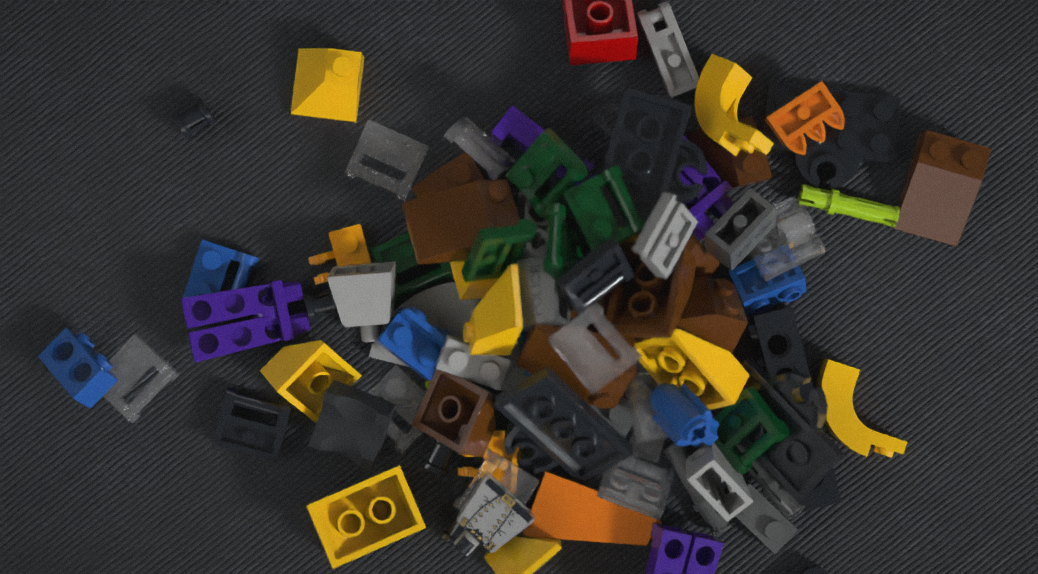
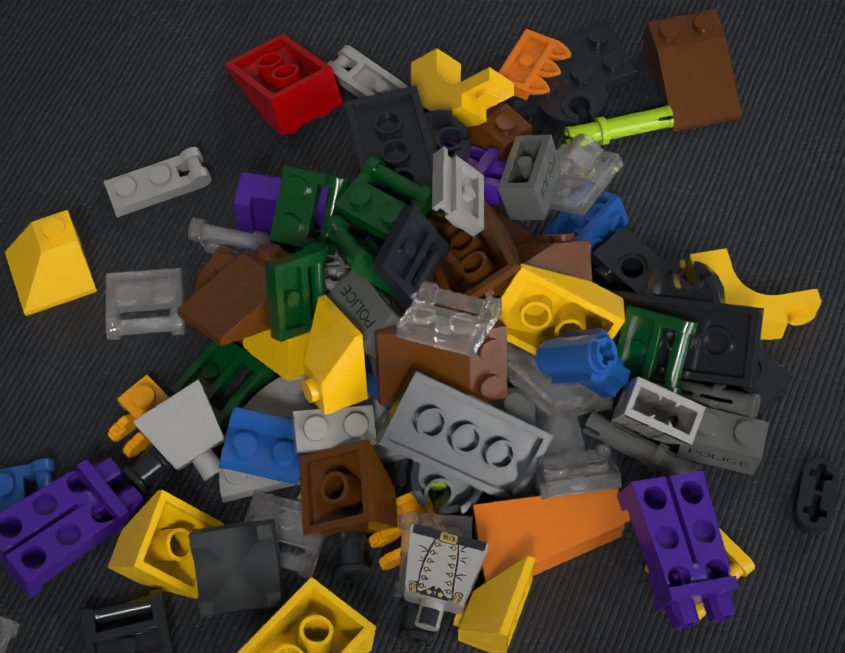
camera: 30 degrees left, 25 degrees down
(448, 49) = (157, 182): none -> light grey plate

